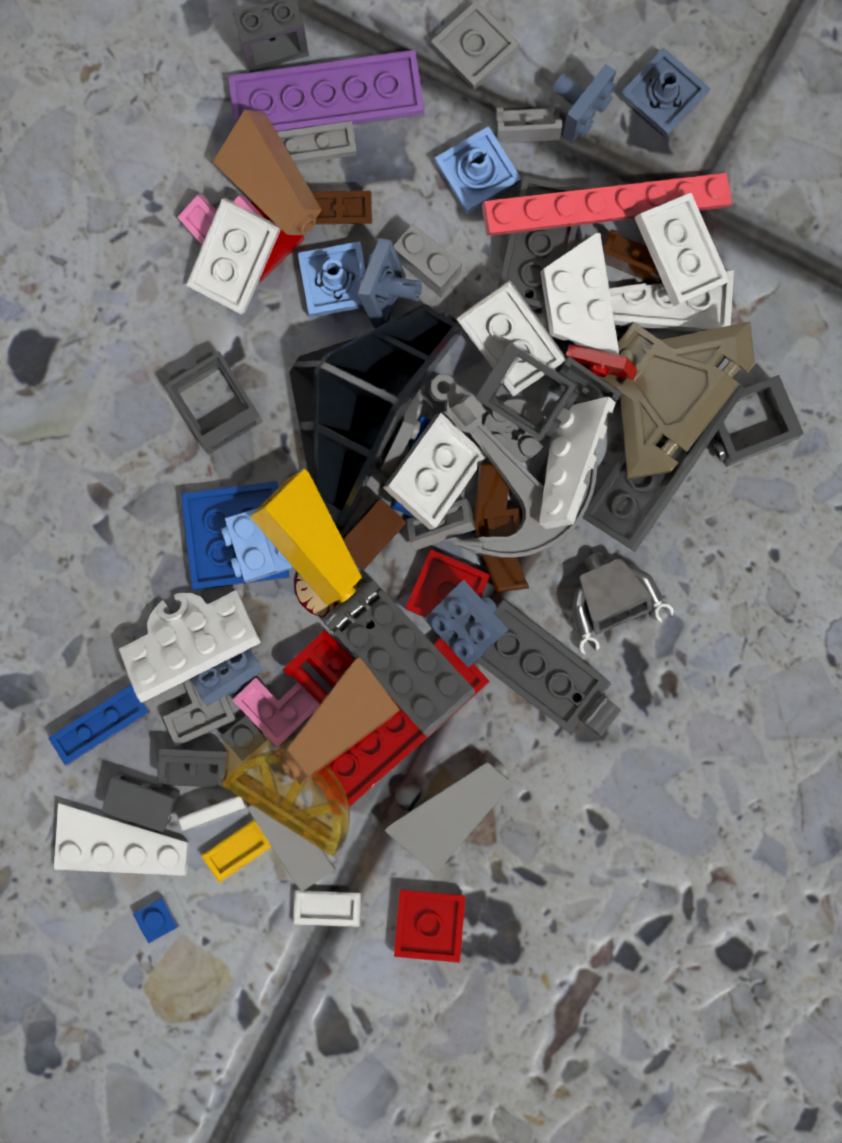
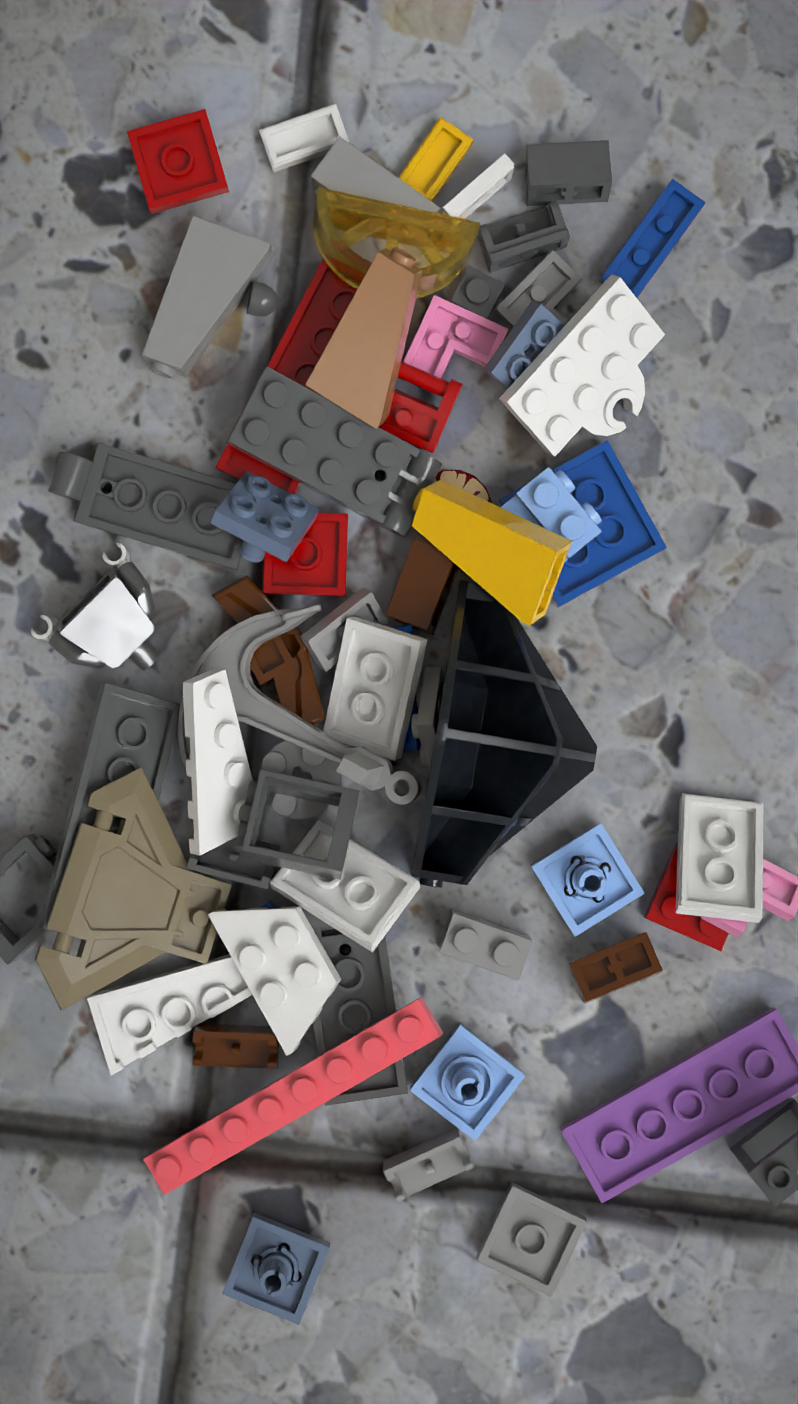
camera: 155 degrees right, 5 degrees up
(107, 845) = (593, 107): white wing -> none
(156, 920) = (495, 48): blue plate -> none
(231, 428) = (720, 684): dark grey window -> none
(267, 174) = (719, 973): medium nougat slope -> none
(320, 142) = (686, 1033): light grey plate -> none
(385, 283) = (522, 891): sand blue plate -> none
(585, 102) = (368, 1217): sand blue plate -> none
(602, 362) = (226, 895): red plate -> none
(682, 249) = (179, 1073): white plate -> none

